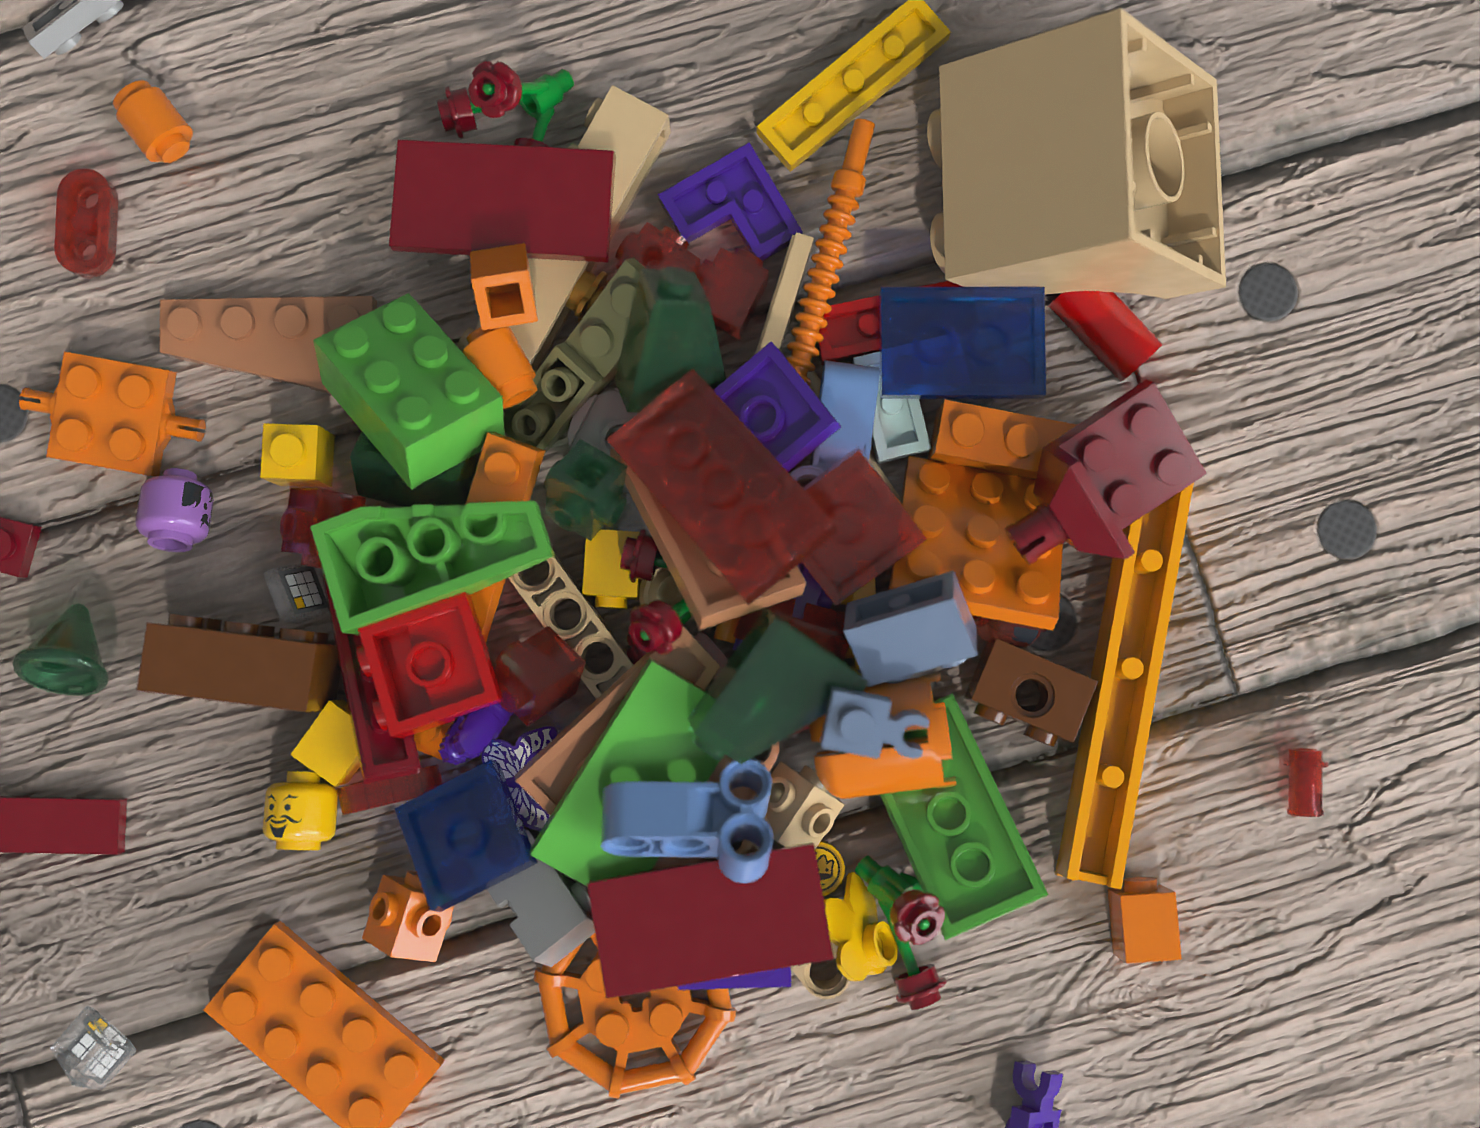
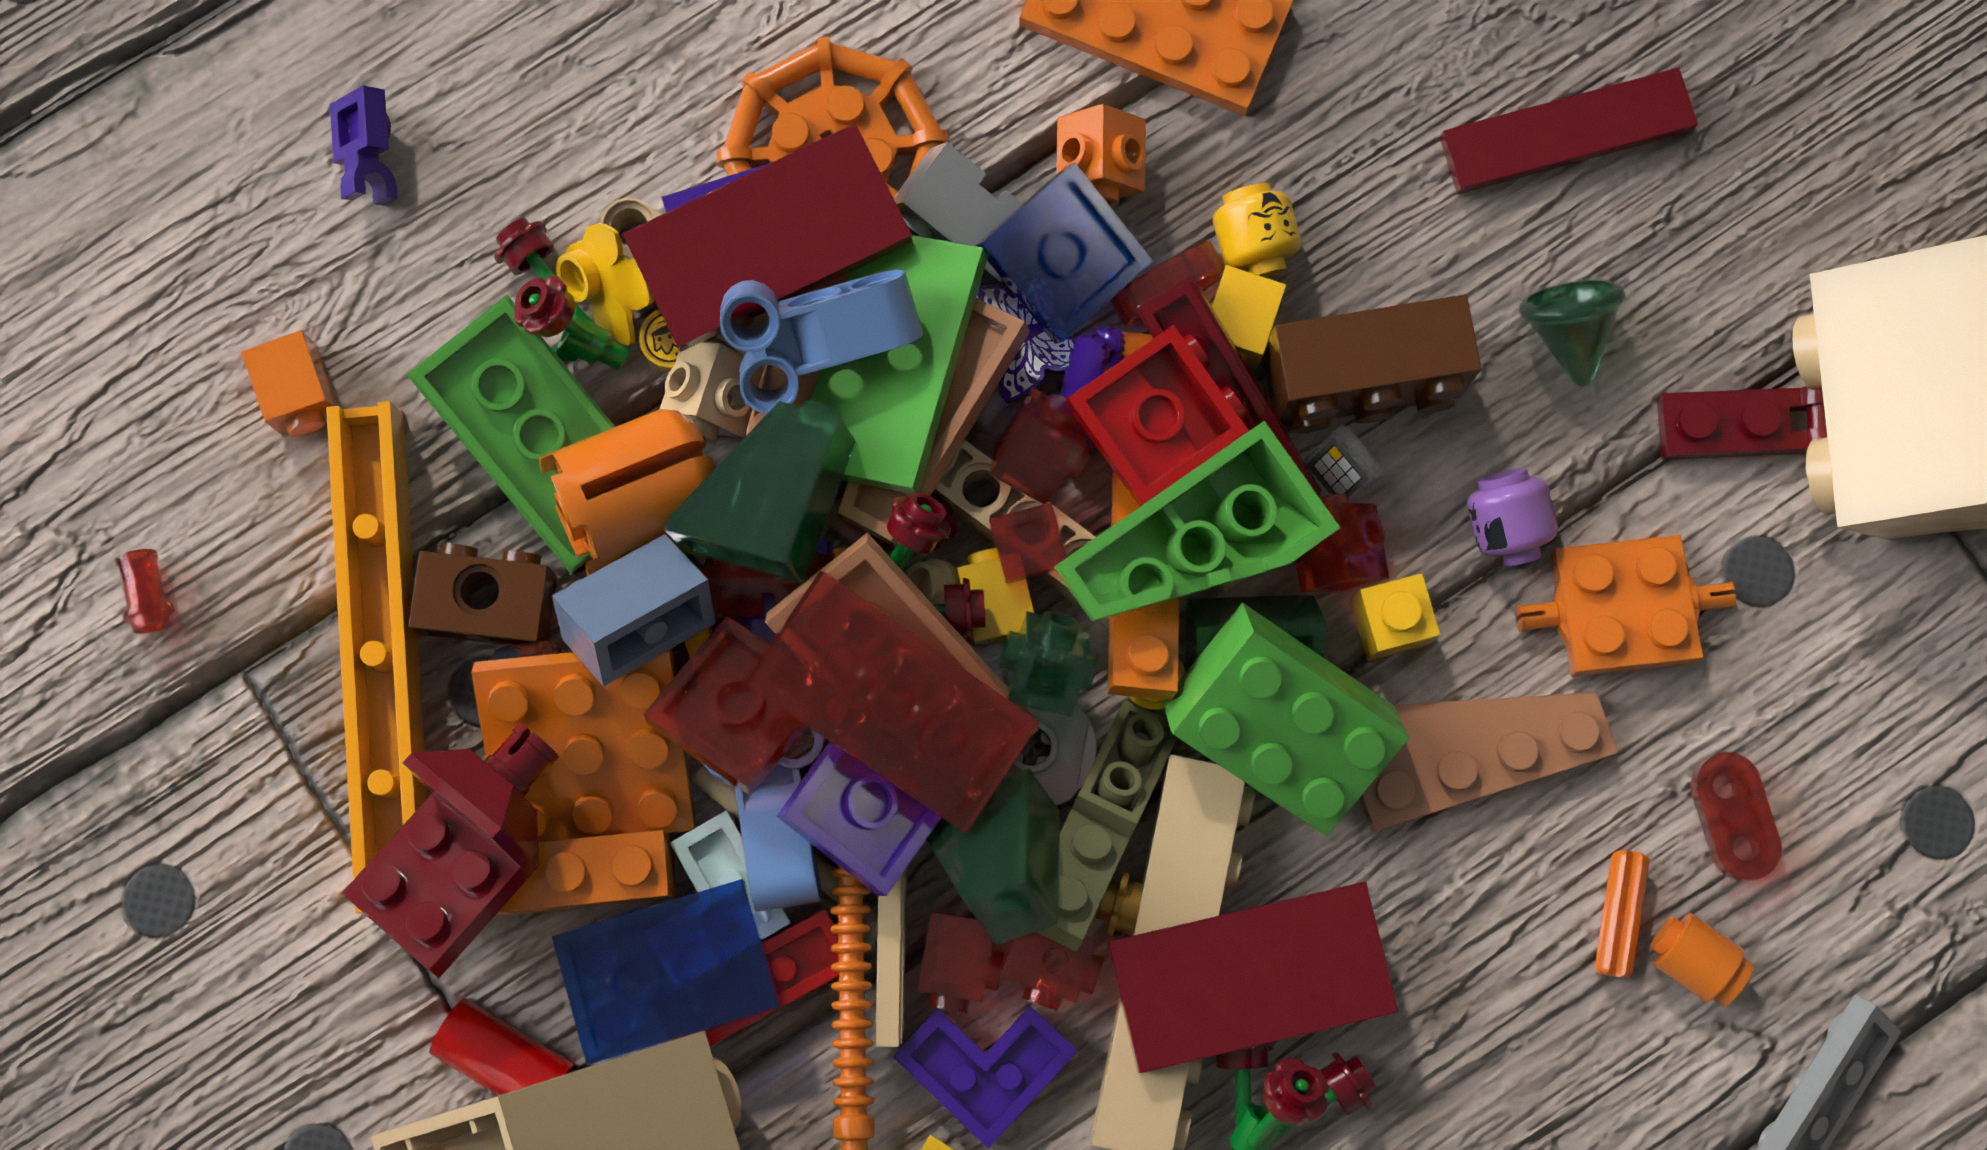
camera: 165 degrees right, 5 degrees down
(202, 178) = (1622, 914): none -> orange axle
(502, 363) = (1189, 779): orange brick -> none
(503, 286) = (1213, 865): orange brick -> none
(571, 597) = (1027, 542): none -> clear red tile
(862, 723) = (657, 483): sand blue plate -> none

